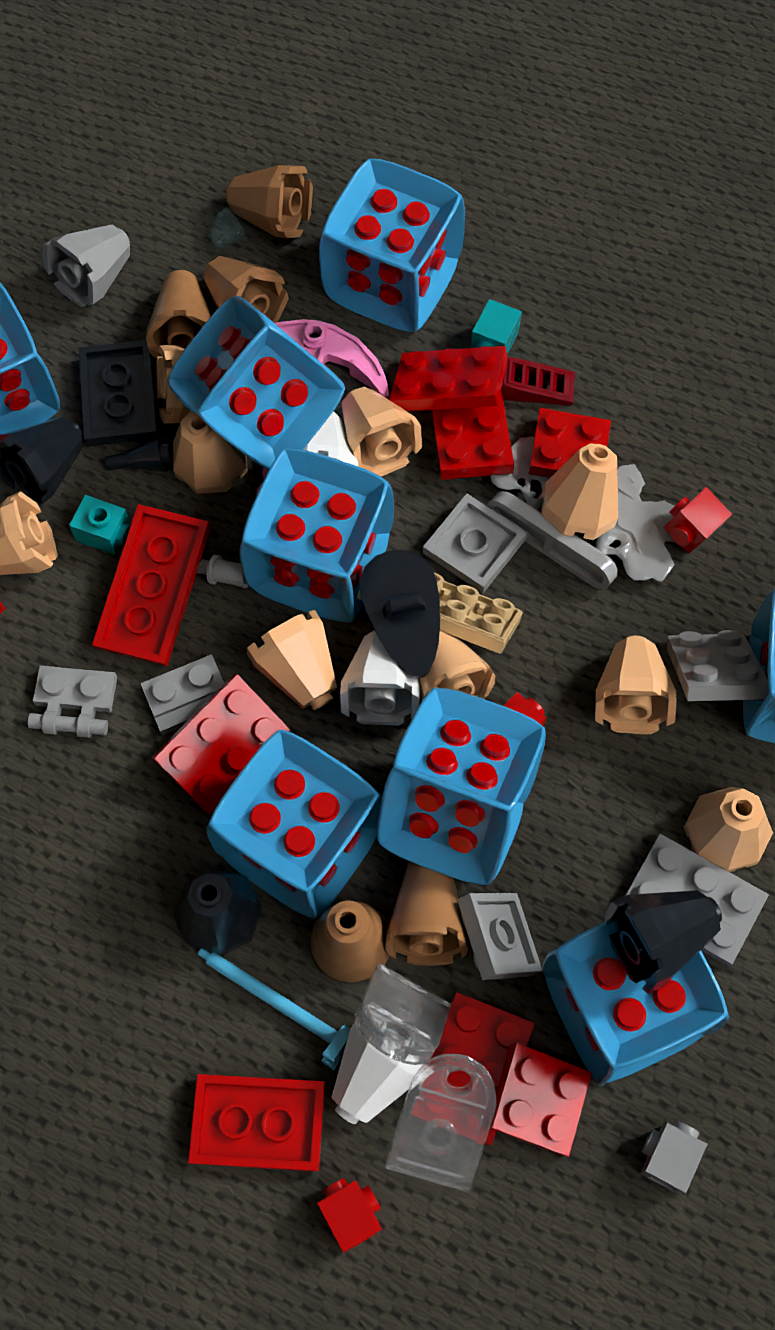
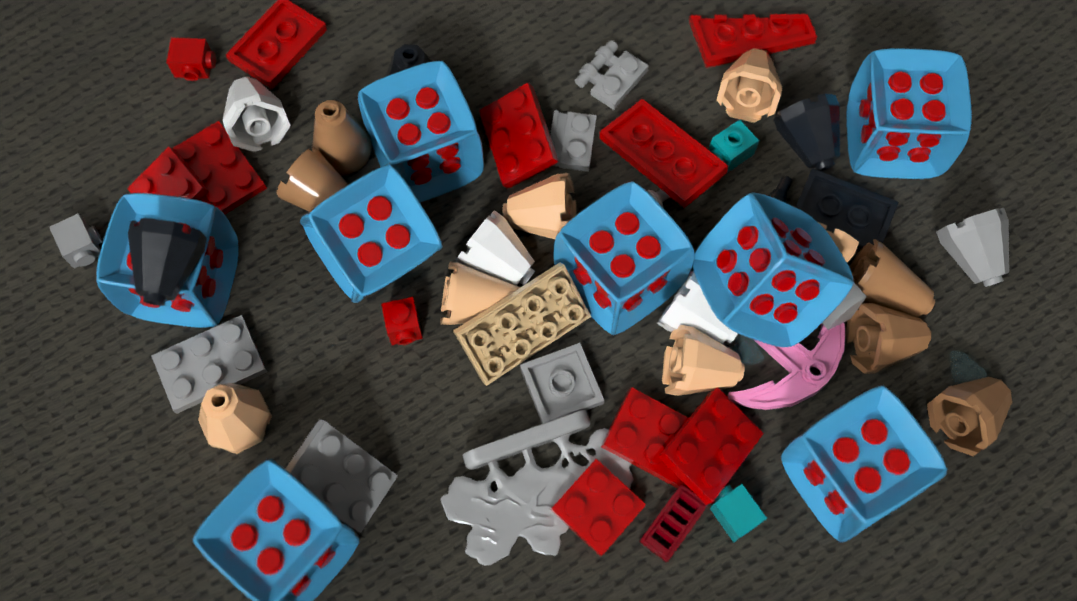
camera: 120 degrees right, 0 degrees up
(336, 1039) = (290, 105): medium azure piece -> none
(401, 1017) = (265, 130): clear tile -> none
(403, 608) = (527, 280): black shield -> none
(442, 1124) = (193, 124): clear tile -> none
(499, 935) = (272, 219): light grey plate -> none
(583, 493) = (525, 465): light nougat cone -> none
(635, 689) = (373, 416): light nougat cone -> none
(696, 519) = (468, 555): brick -> none

